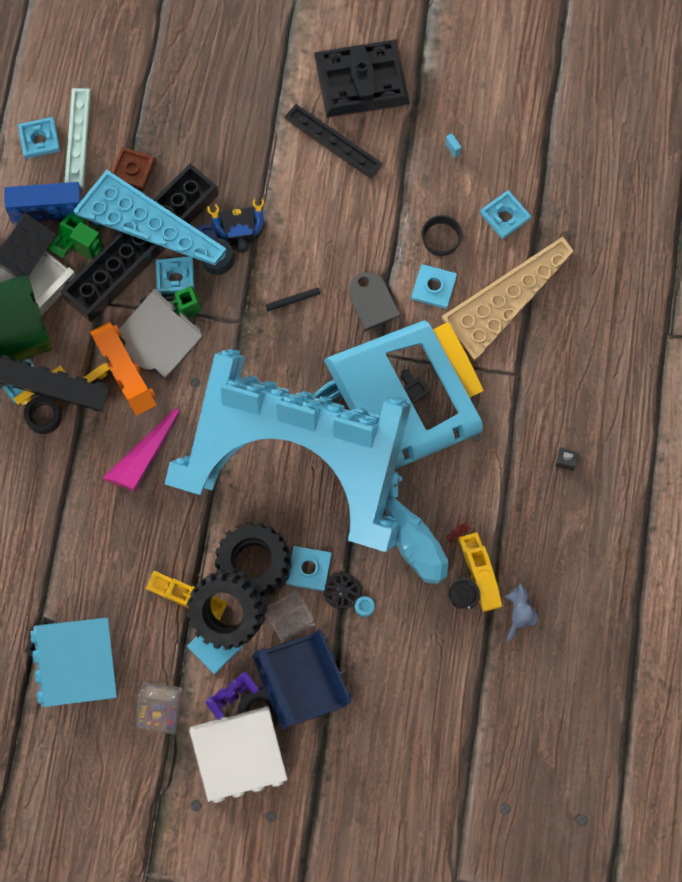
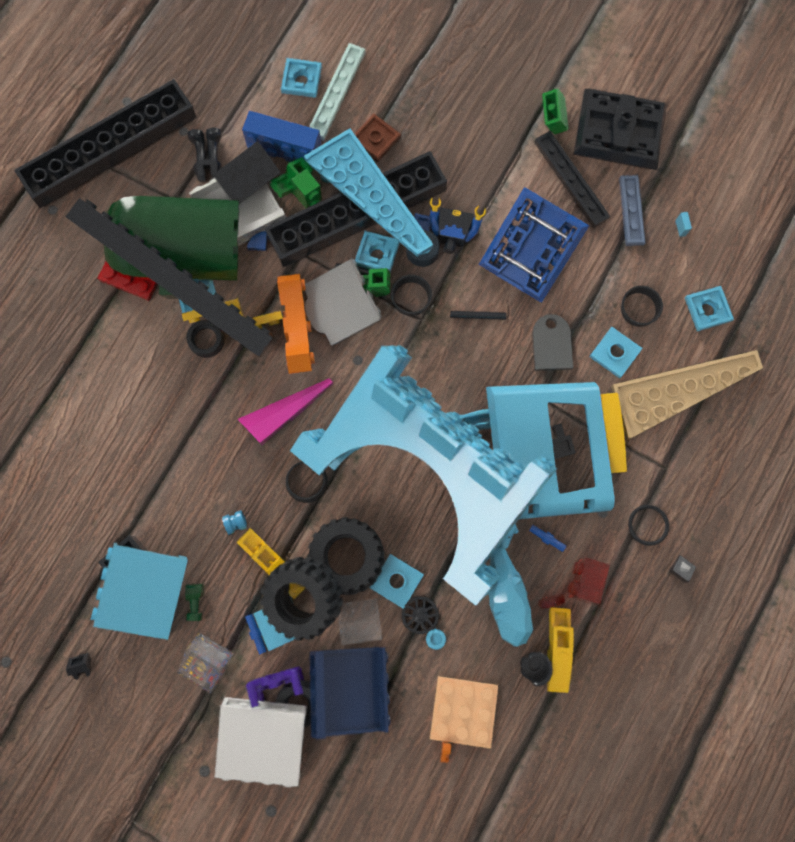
camera: 15 degrees right, 5 degrees up
(40, 753) = (79, 664): none -> black tile
(57, 307) = (258, 242): none -> blue tile
(124, 651) = (194, 593): none -> dark green leg
(137, 571) = (234, 522): none -> dark azure wheel
(190, 528) = (307, 499): none -> black tyre
(196, 665) = (255, 634): none -> blue bar
(219, 288) = (411, 279): none -> black tyre
(294, 84) = (555, 111): none -> green brick
(319, 215) = (533, 244): none -> blue piece
(401, 150) = (632, 210): none -> sand blue tile
(410, 698) = (445, 751): none -> orange tile
(414, 660) = (464, 712): none -> light nougat plate
(433, 477) = (547, 538): none -> blue bar
(483, 499) = (588, 581): none -> clear red brick
(516, 447) = (633, 533): none -> black tyre
(523, 613) = (585, 707): sand blue animal -> none

